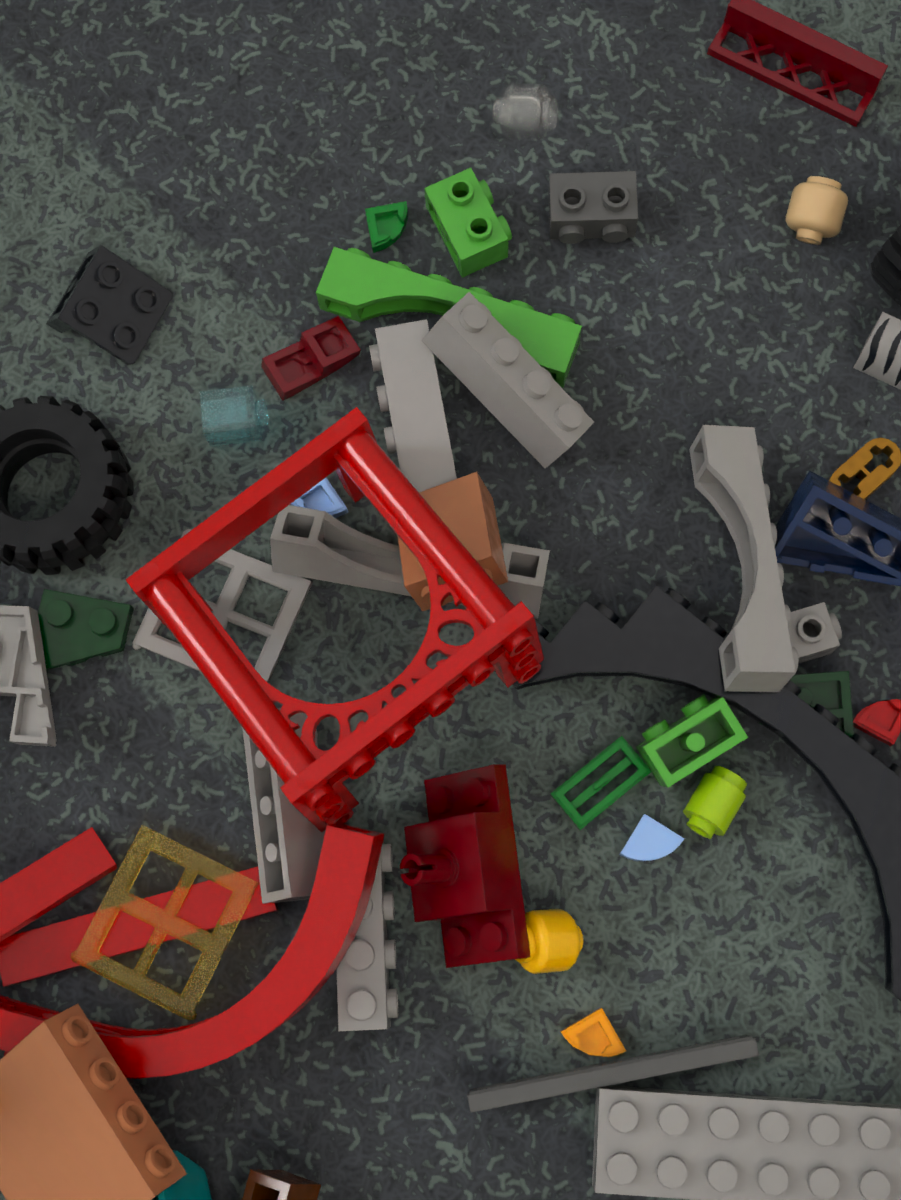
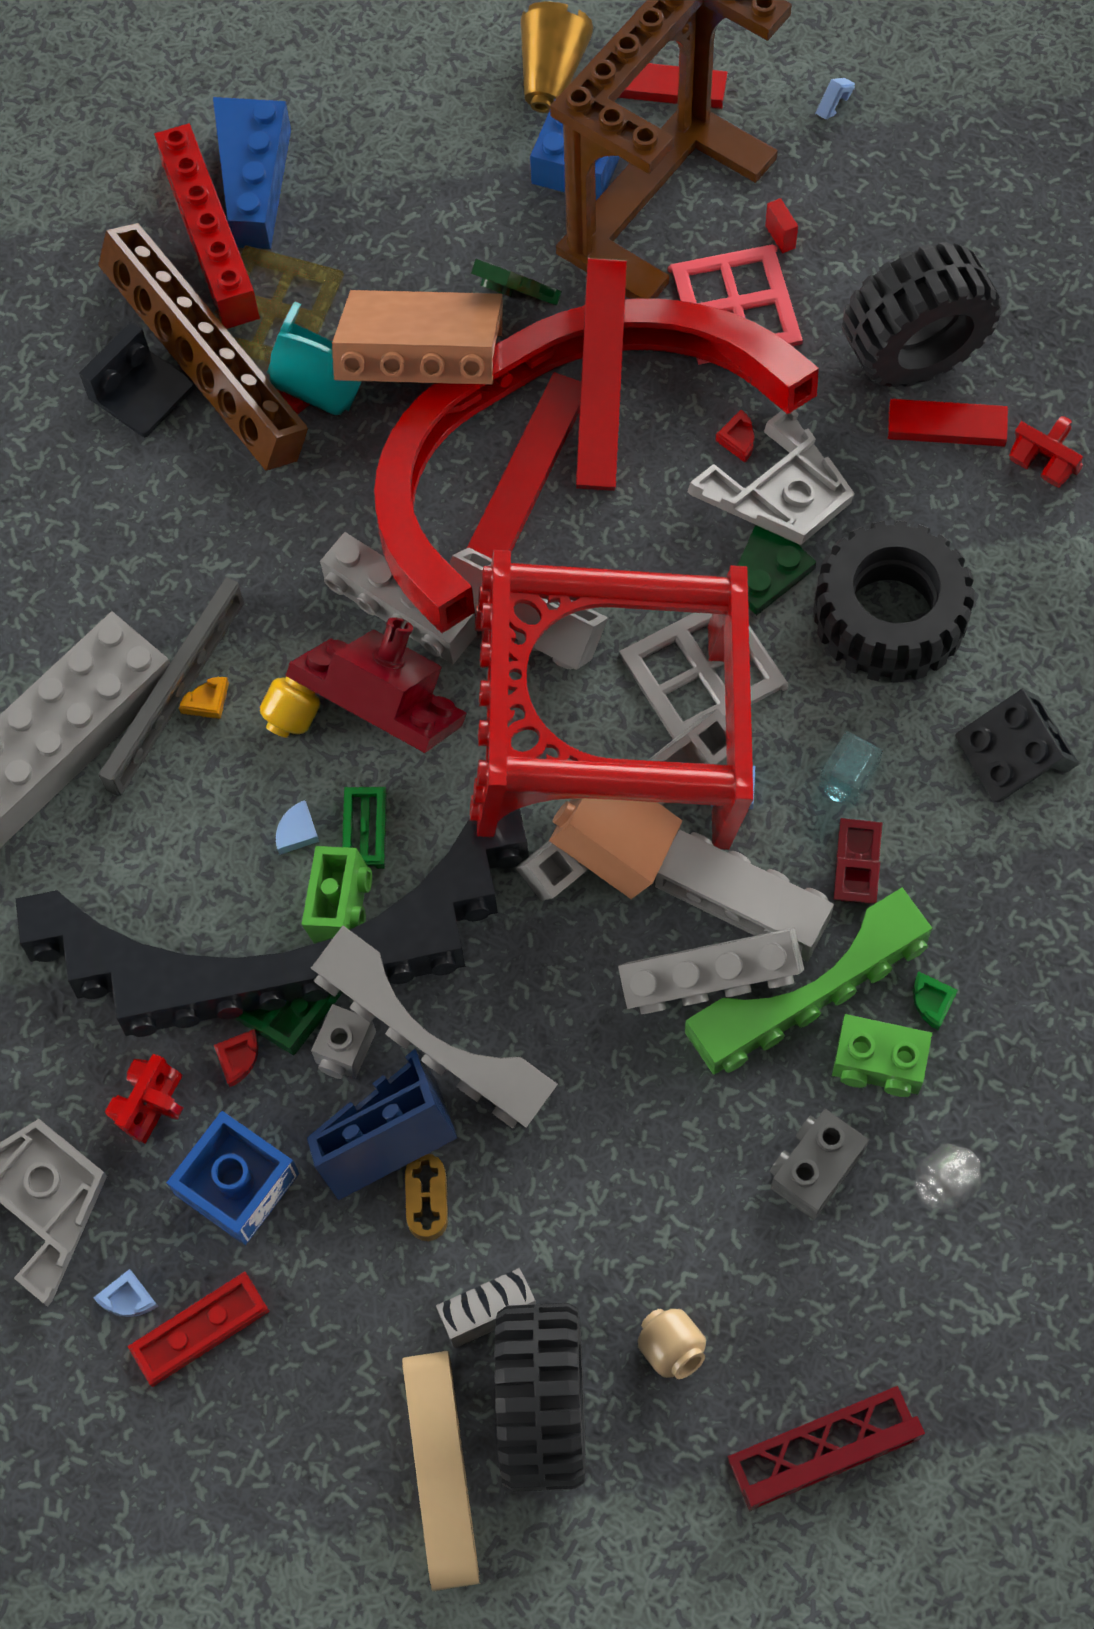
camera: 125 degrees right, 10 degrees down
(165, 922) = (511, 488): clear yellow window -> none
(715, 802) = (282, 887): lime brick -> none

